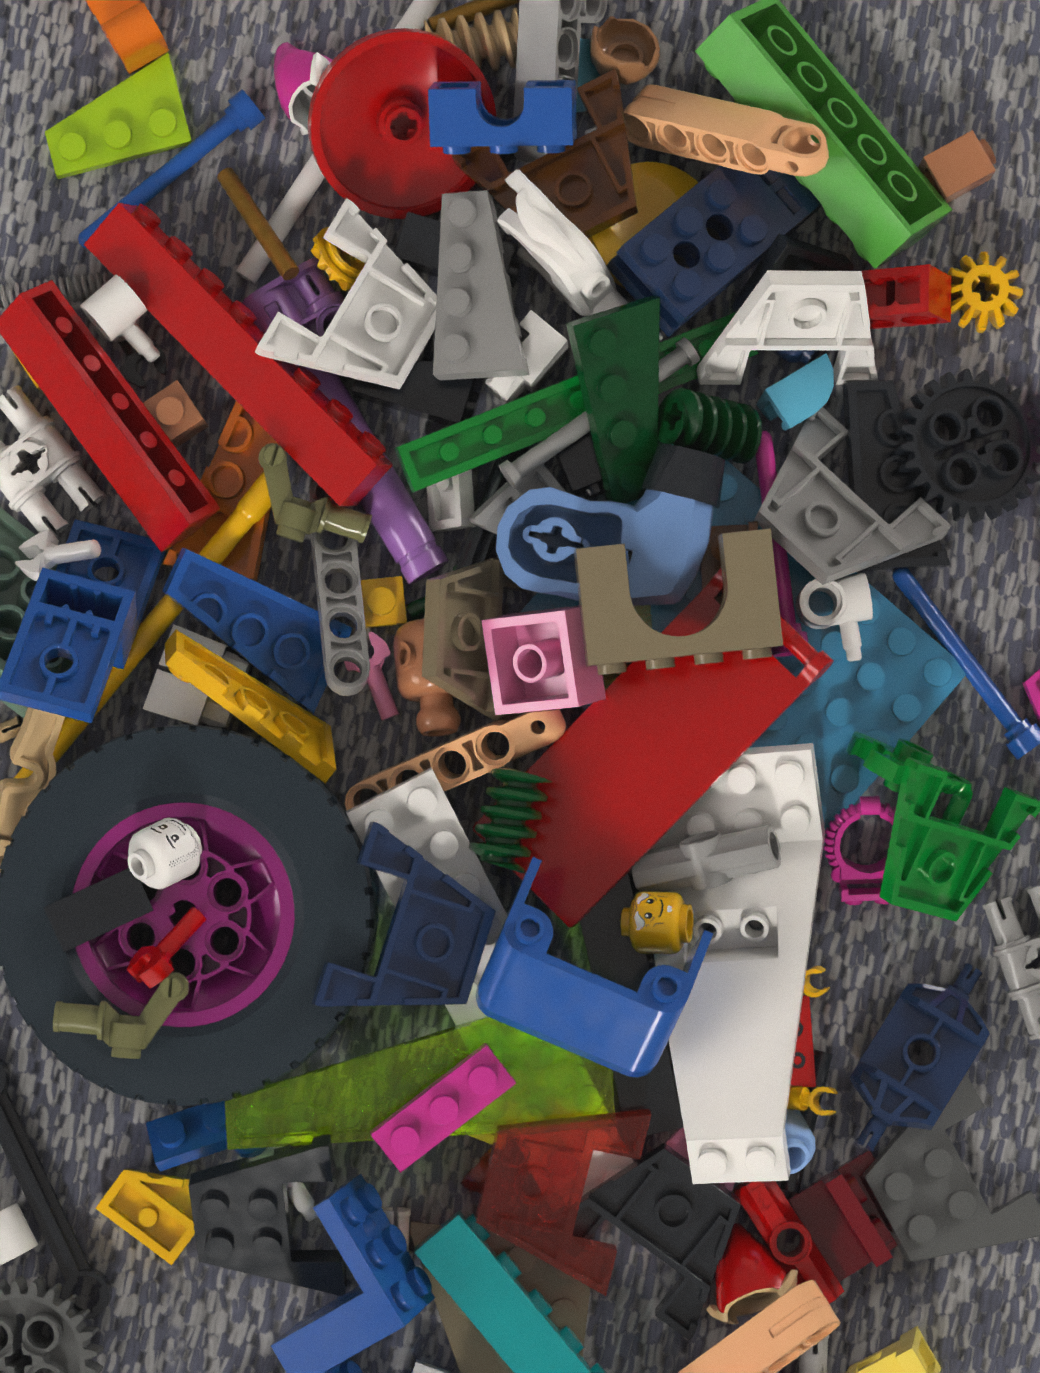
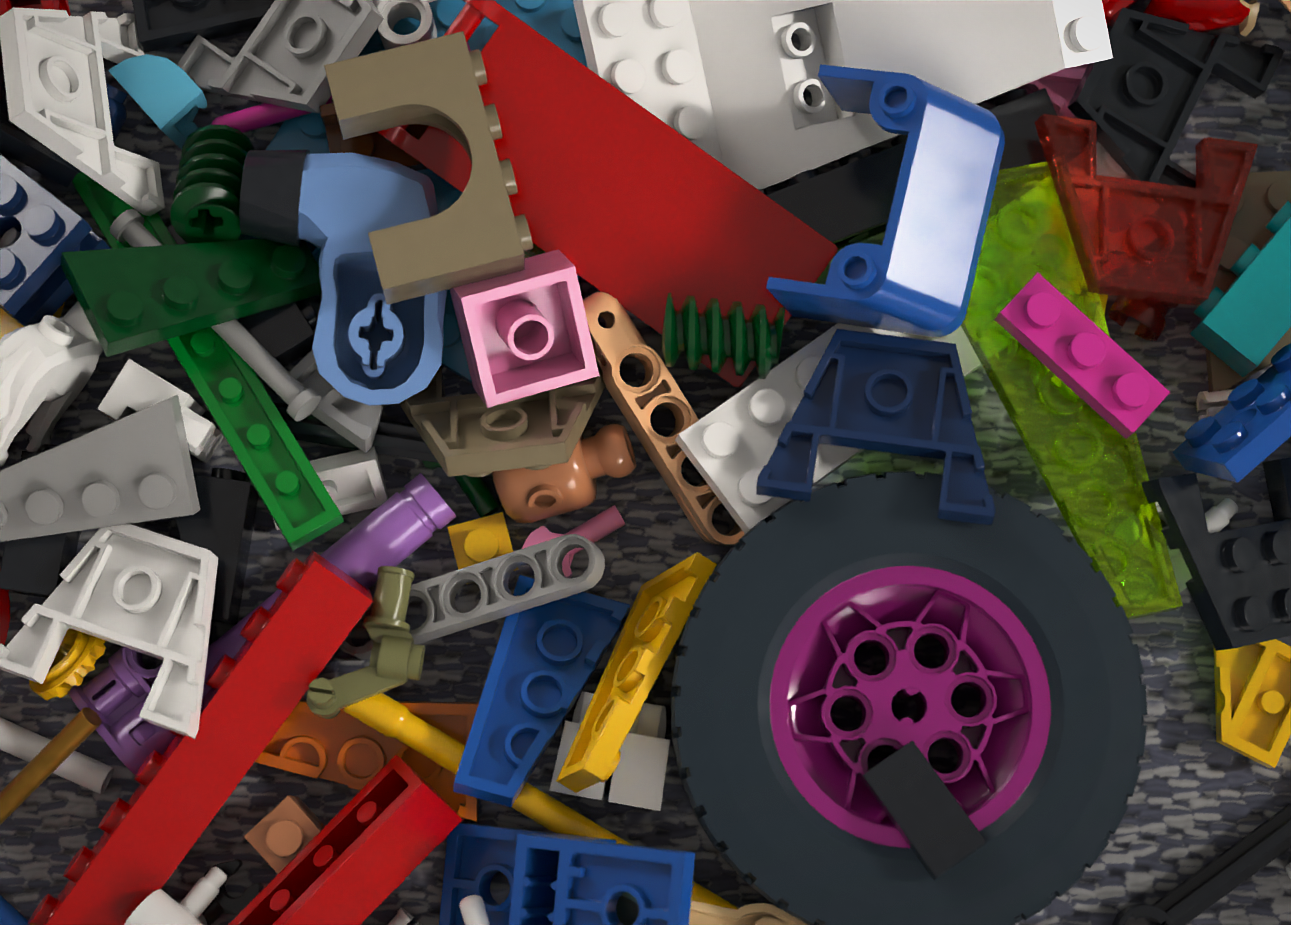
camera: 100 degrees left, 5 degrees down
(123, 1032) = (1071, 746): olive pin -> none
(153, 963) = (978, 727): red bar -> none
(164, 853) = (840, 736): white head -> none
(191, 1136) = (1169, 669): blue hinge -> none
(658, 922) = (814, 147): yellow head -> none
(708, 860) = (731, 101): light grey piece -> none

